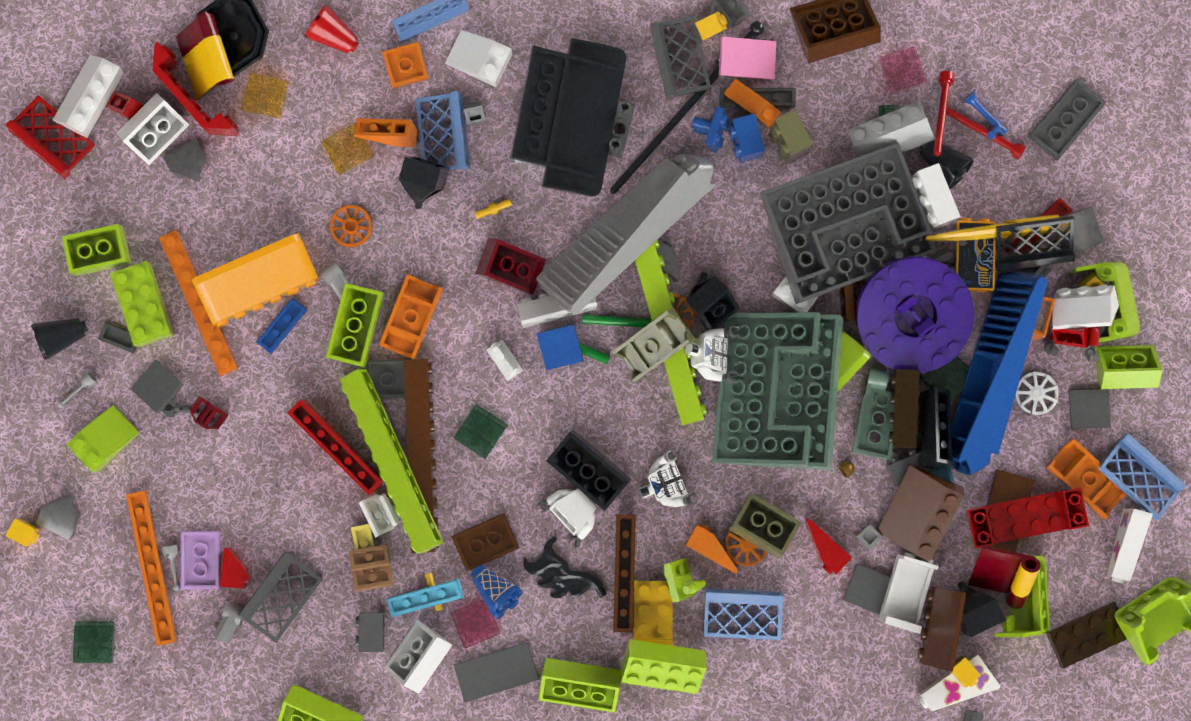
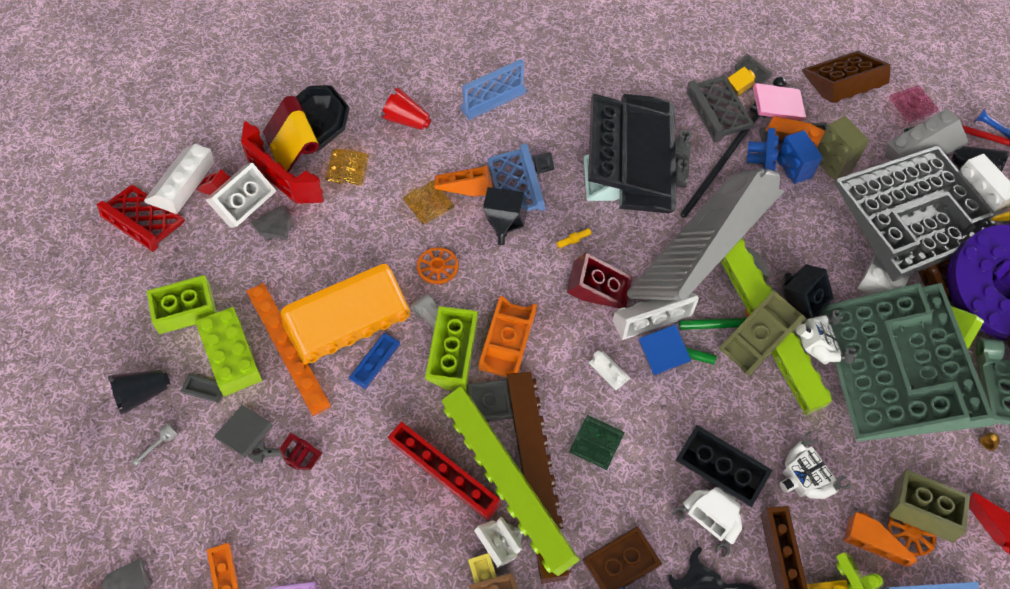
camera: 10 degrees left, 25 degrees down
(103, 439) = (181, 492): lime slope -> none
(405, 65) = (475, 133): orange plate -> none
(479, 57) = (542, 122): white slope -> none
(946, 79) = (955, 105): red piece -> none

